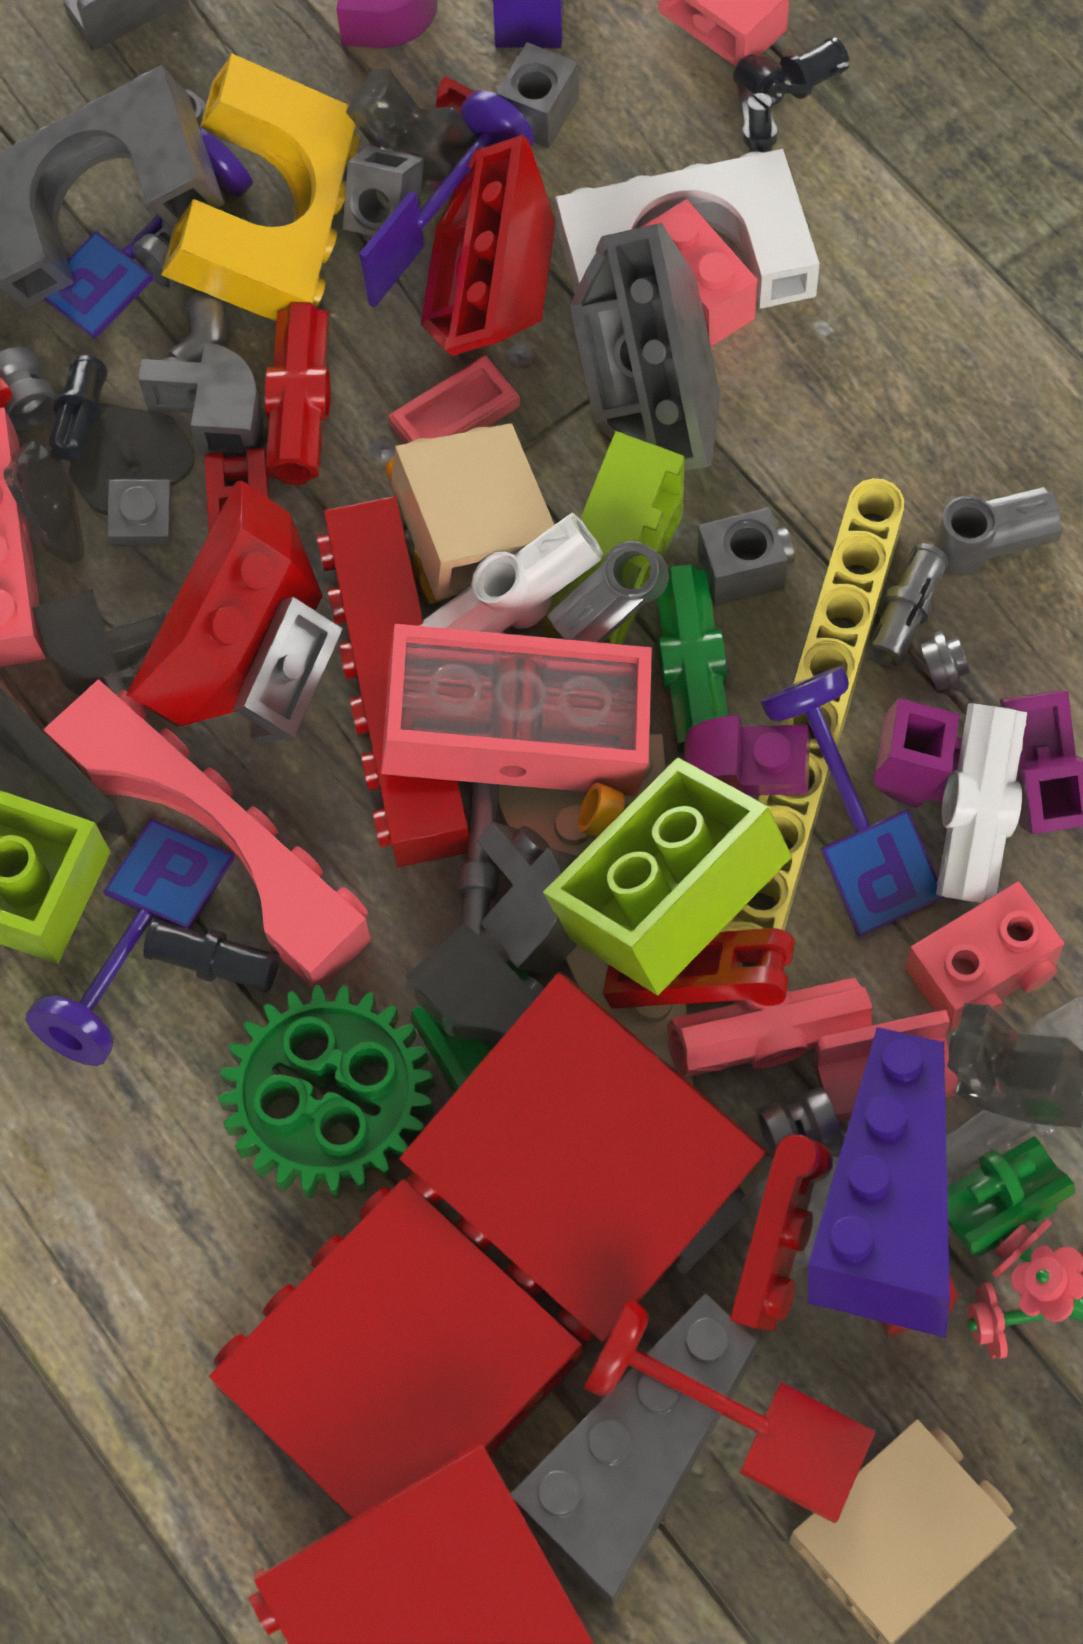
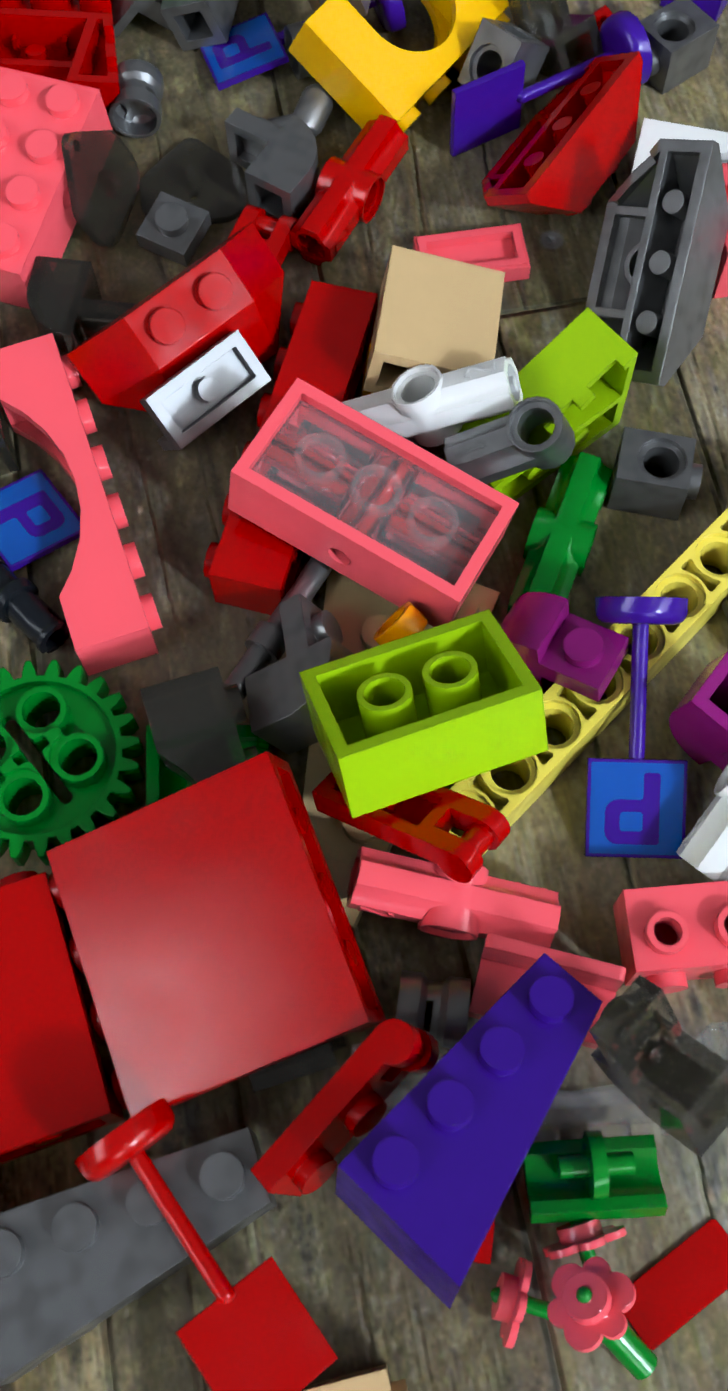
camera: 25 degrees right, 0 degrees up
(77, 408) = (170, 129): black axle -> none

